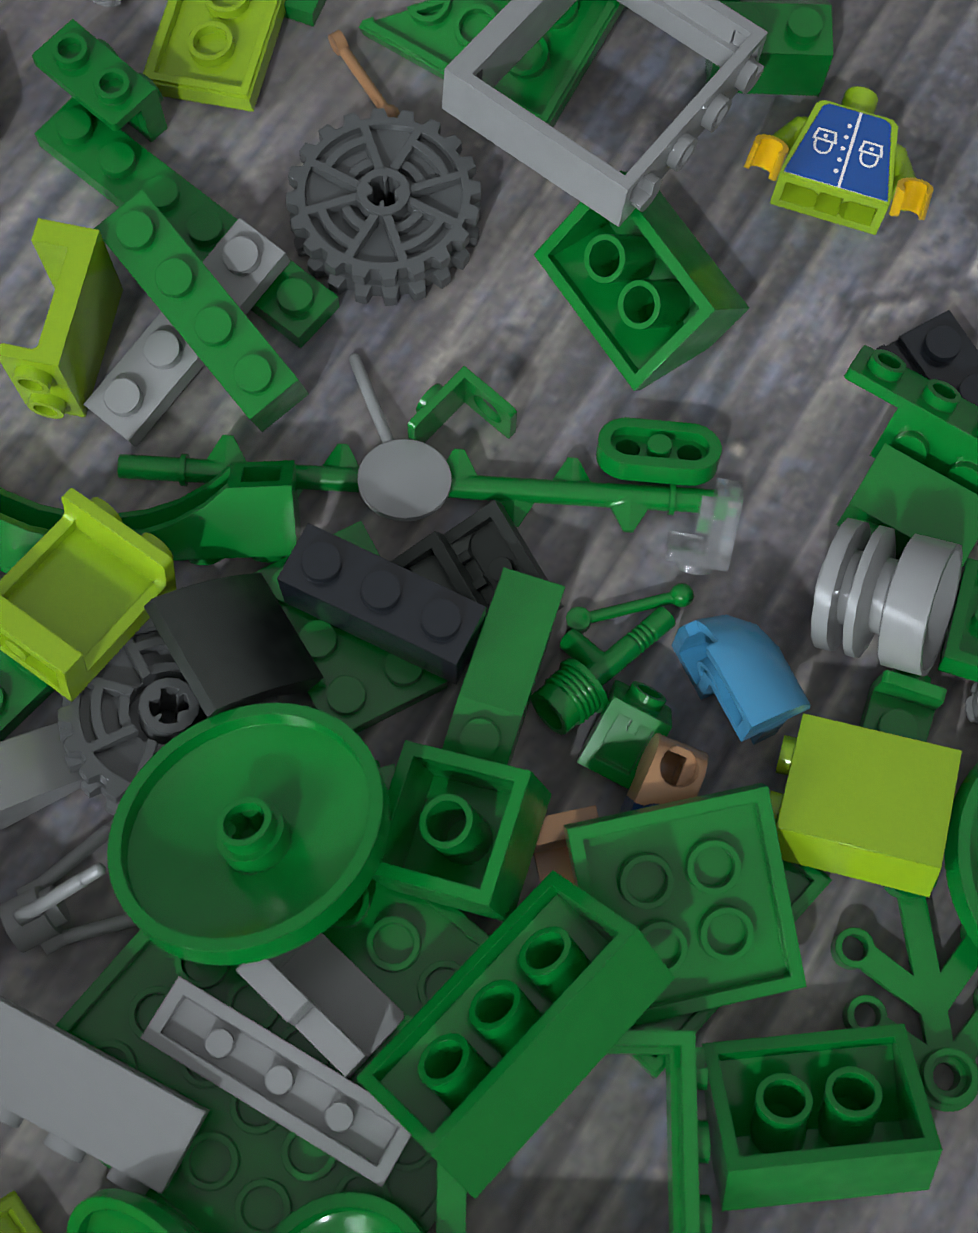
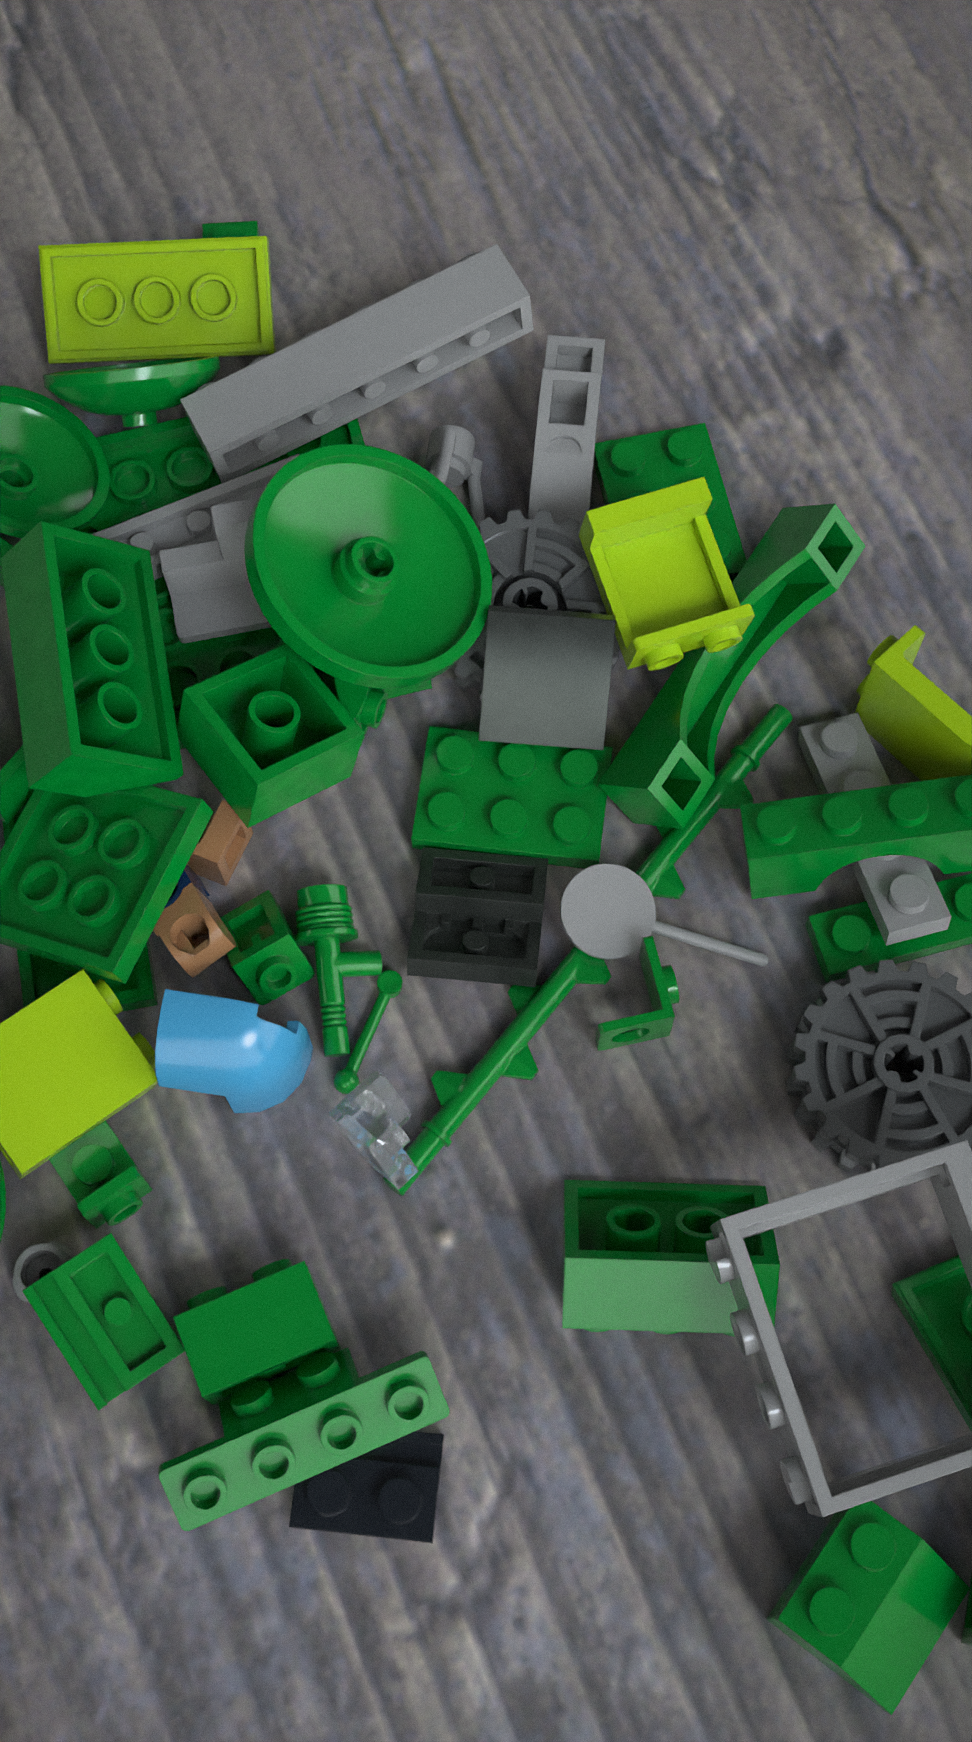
camera: 130 degrees right, 5 degrees down
(382, 603) = (498, 804): black brick -> none
(504, 668) = (375, 865): green slope -> none
(658, 451) = (483, 1148): green plate -> none
(842, 164) = (660, 1553): torso -> none
(872, 592) = (195, 1217): light grey wheel -> none

